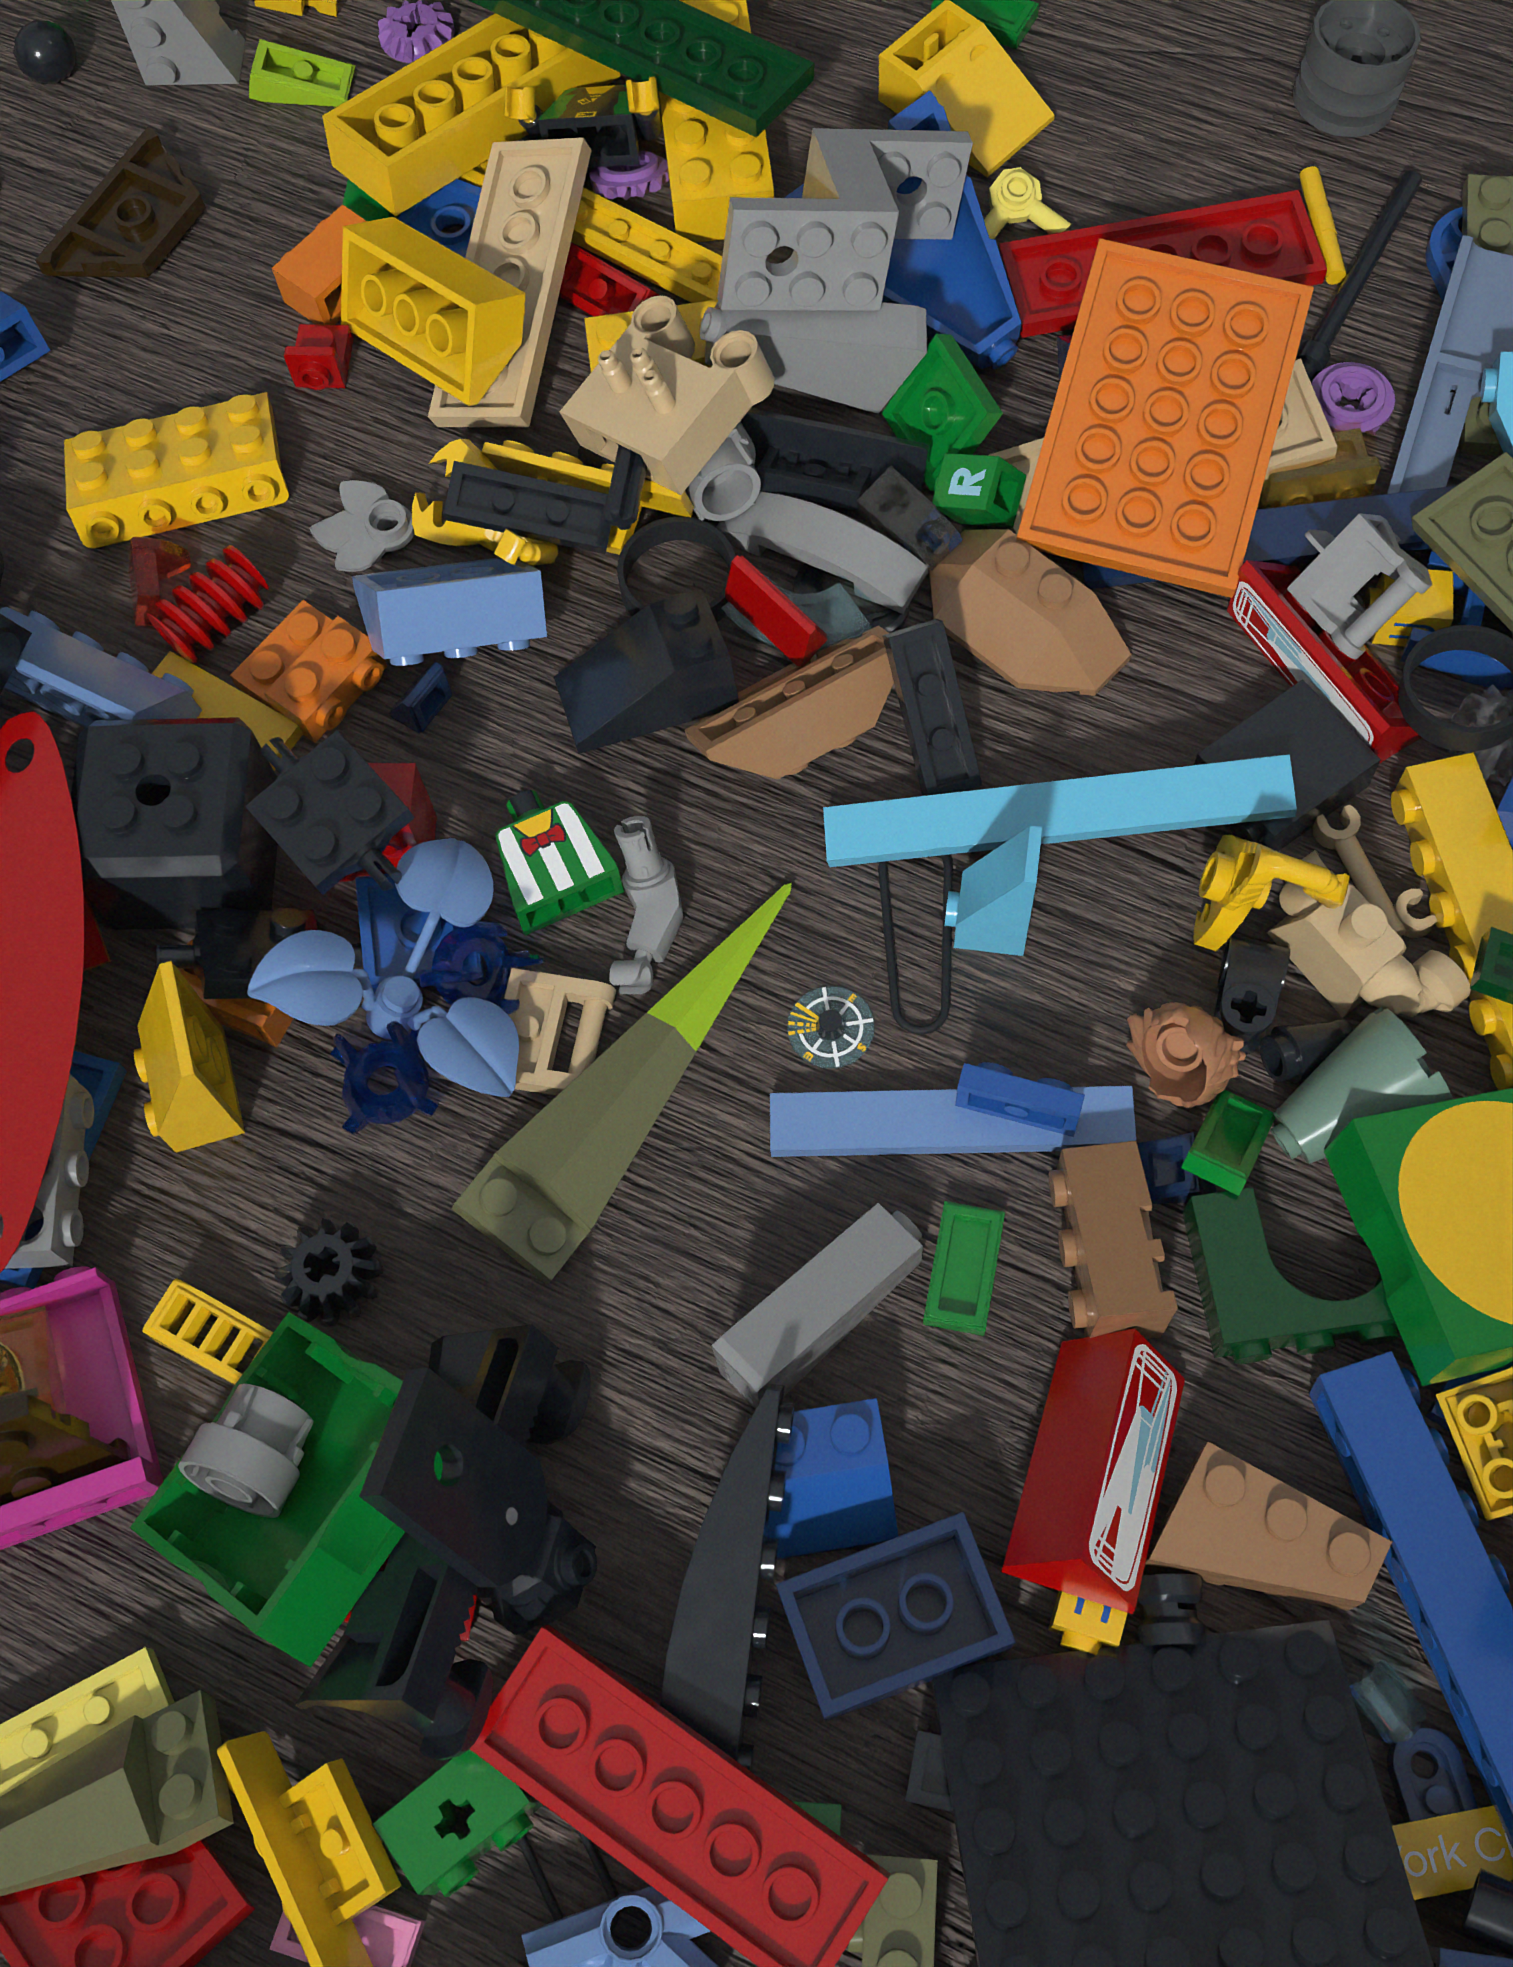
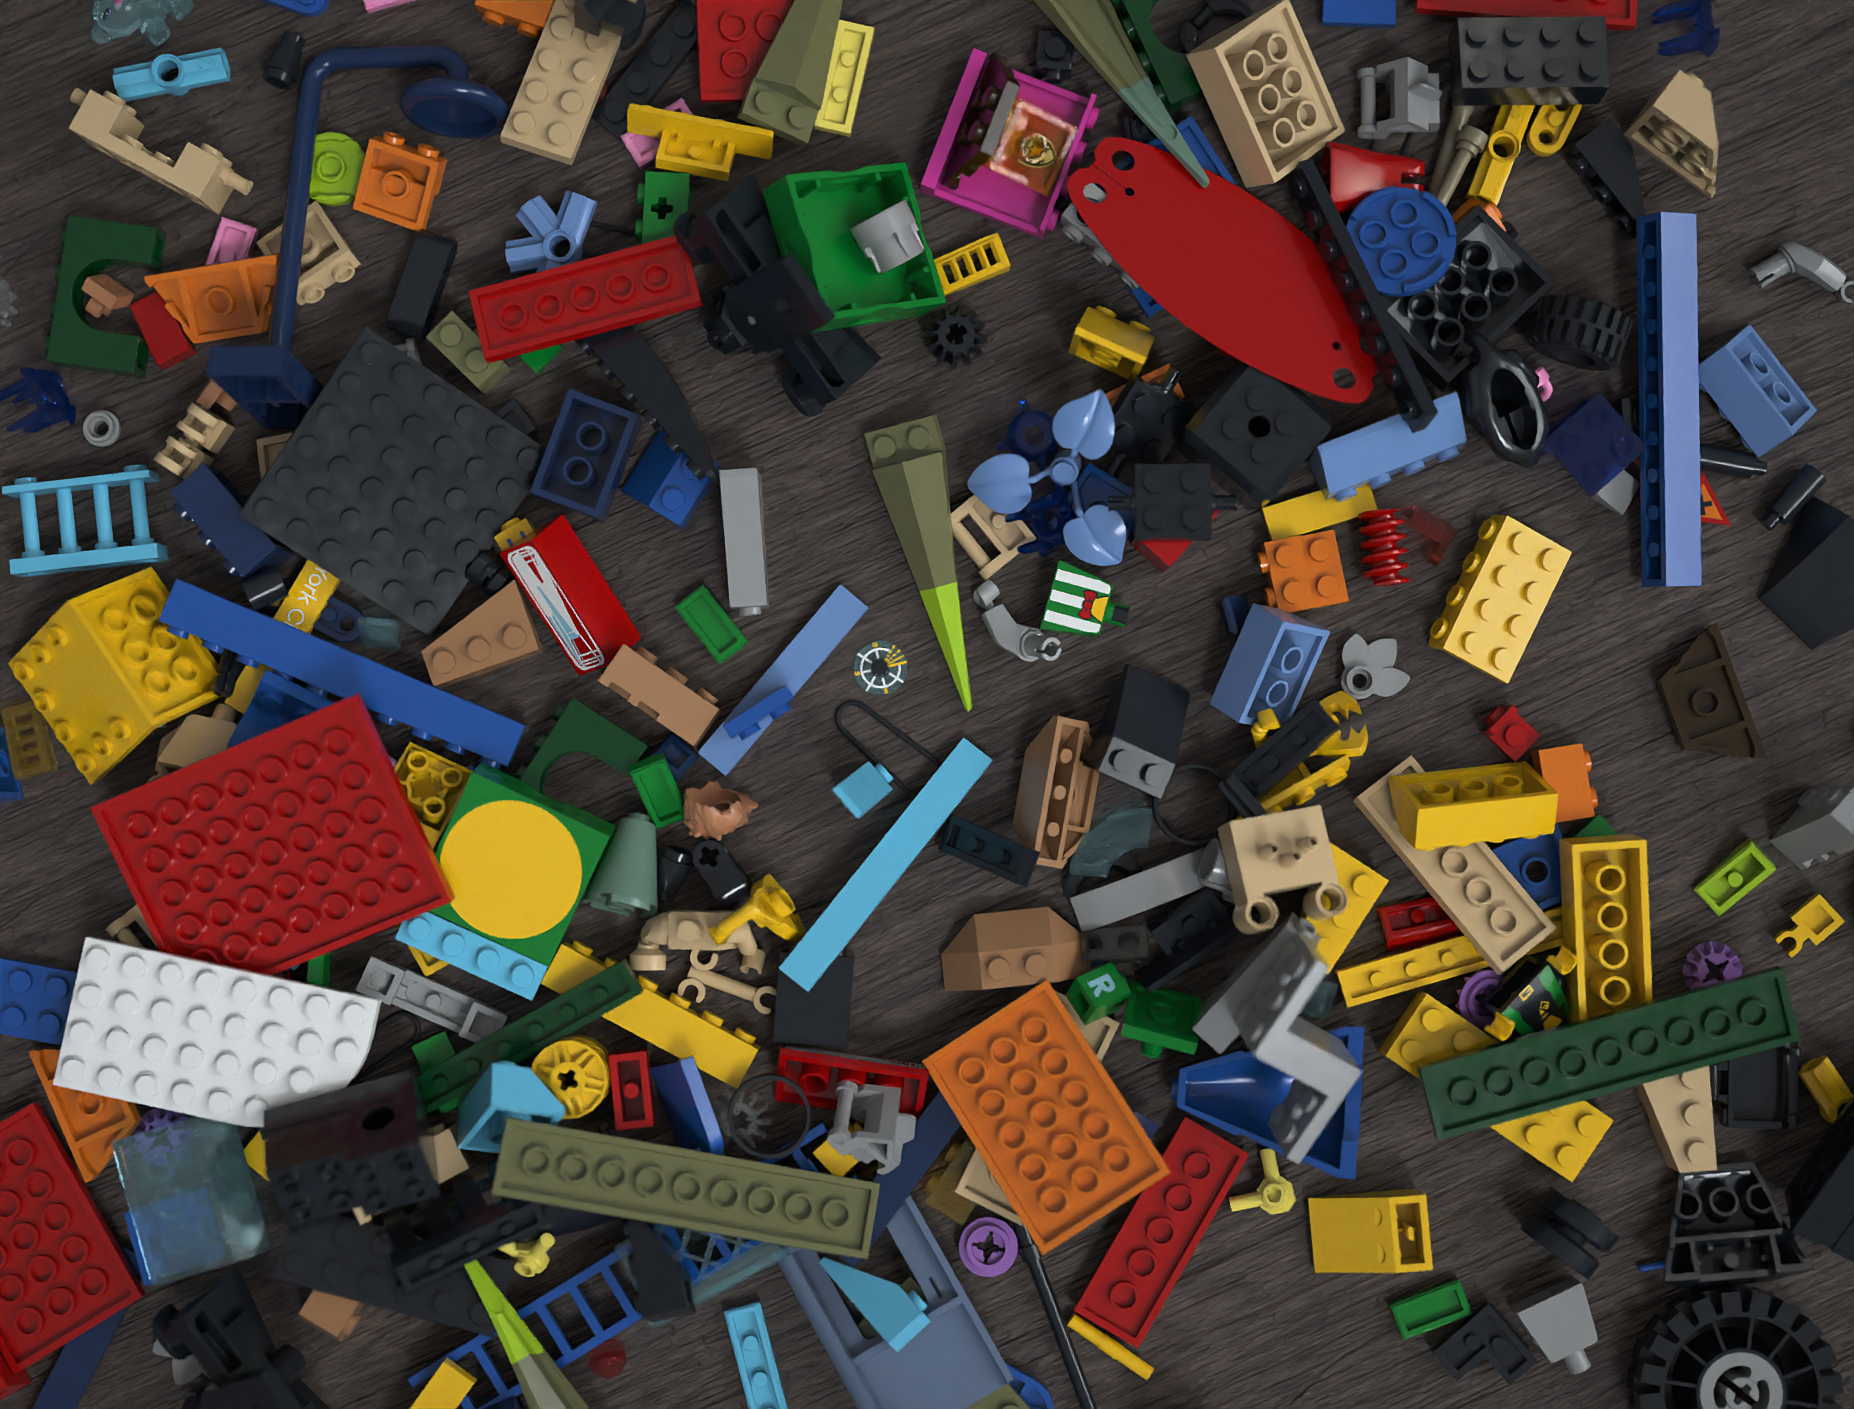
camera: 125 degrees right, 20 degrees up
(773, 612) = (1118, 828): red slope -> none

